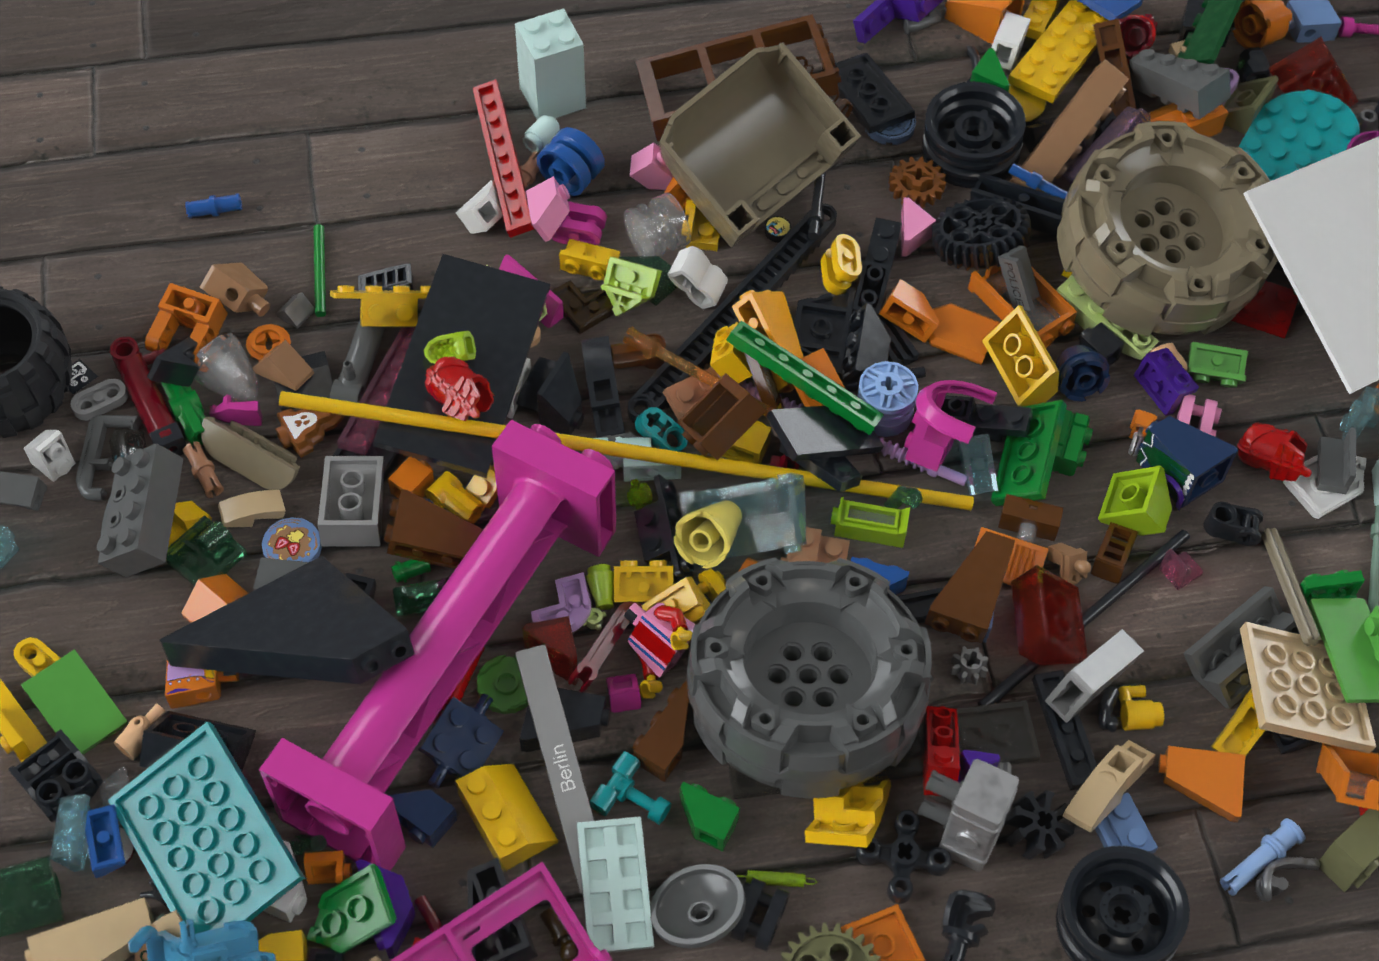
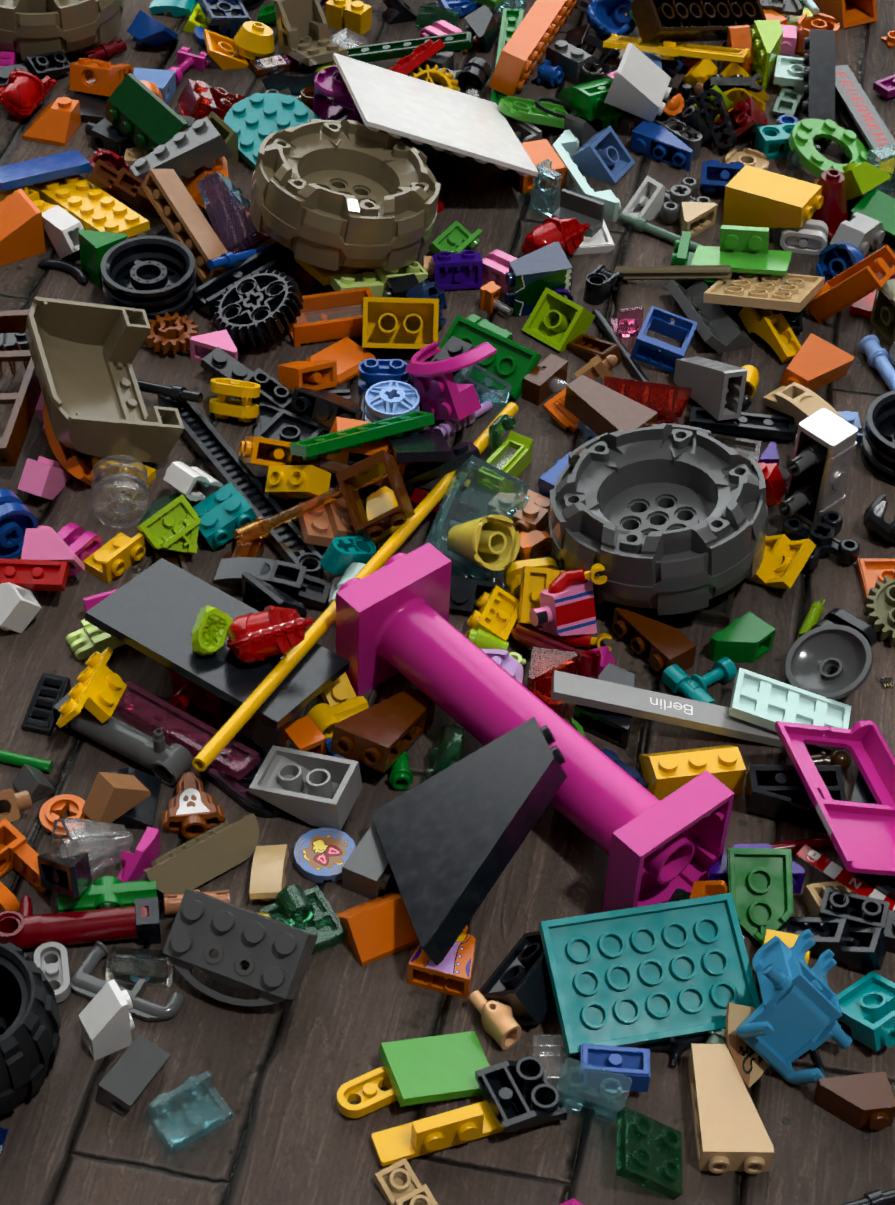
camera: 70 degrees left, 15 degrees down
(672, 316) = (222, 514): none -> teal plate
(943, 365) = (377, 370): none -> blue brick
(1019, 277) = (324, 299): dark grey panel -> none
(1133, 615) = (657, 352): none -> blue window

